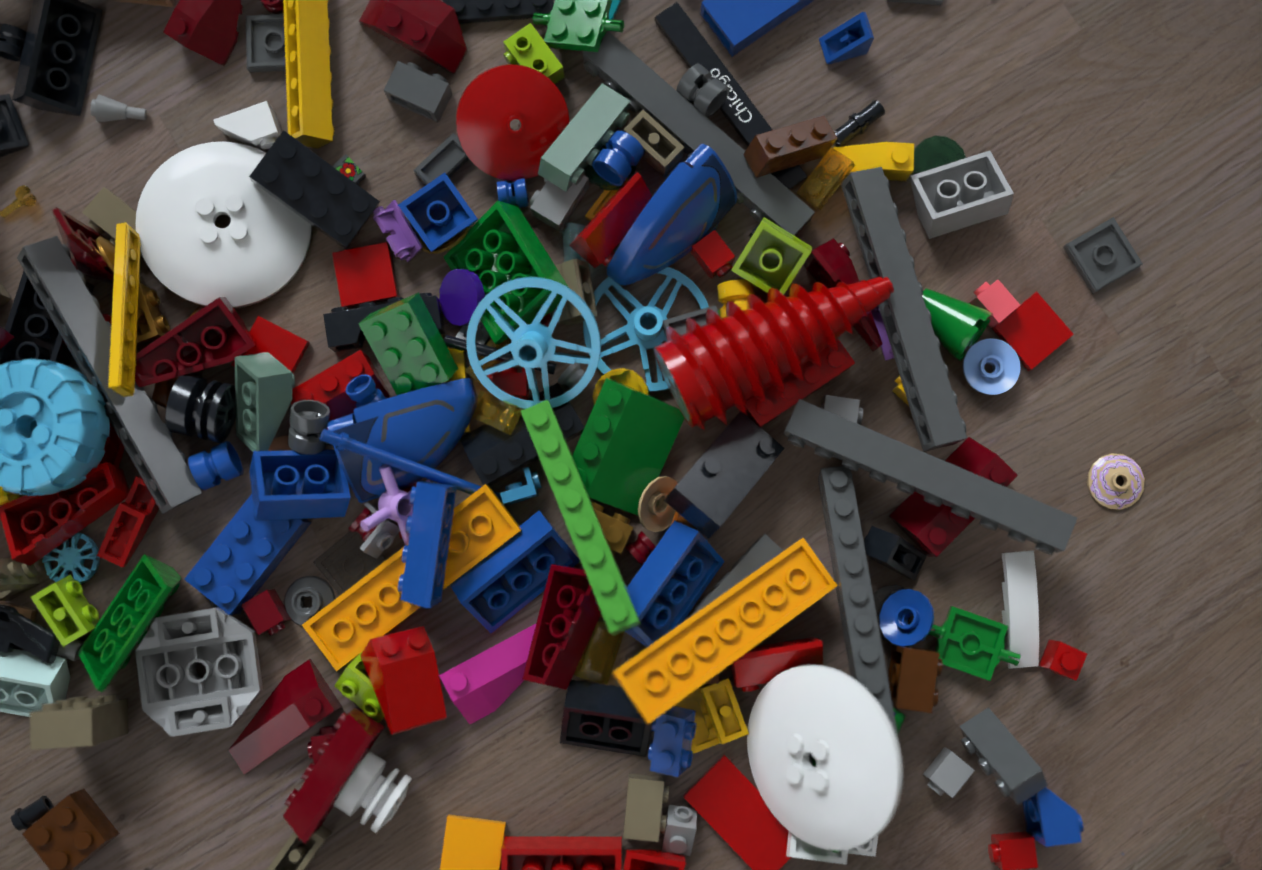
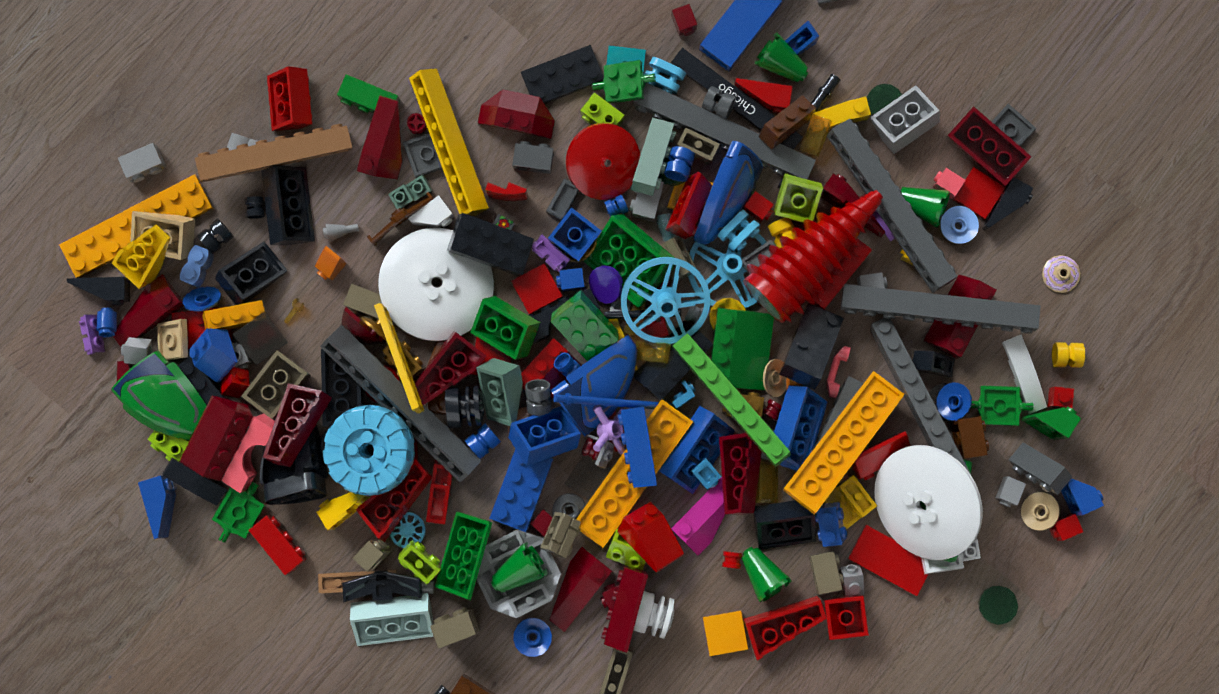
camera: 15 degrees left, 0 degrees up
(85, 150) = (329, 264): none -> orange slope
(181, 773) = (530, 647): none -> blue dish
(199, 118) = (398, 217): none -> reddish brown plate
(199, 667) = (520, 569): none -> green cone
(234, 89) = (411, 192): none -> sand green slope
(275, 636) = (561, 535): none -> dark tan brick
(295, 313) = (505, 327): none -> green brick
(365, 126) = (511, 193): none -> red slope
(415, 276) = (570, 279): none -> blue brick
(515, 746) = (732, 560): none -> red wheel
(516, 612) = (706, 474): none -> dark azure bracket
(553, 782) = (764, 574): none -> green cone
(647, 25) = (675, 73): none -> medium azure brick
(669, 294) = (750, 230): none -> medium azure brick
(738, 542) = (841, 355): none -> coral bar
(774, 100) = (769, 95): none -> red slope
(811, 59) = (782, 60): none -> green cone
(968, 815) = (1031, 511): none -> tan dish
(1045, 695) = (1055, 423): none -> green slope
(1068, 267) = (989, 146): none -> dark red brick
(1078, 353) = (1013, 197): none -> black slope
(1098, 603) = (1068, 354): none -> yellow wheel

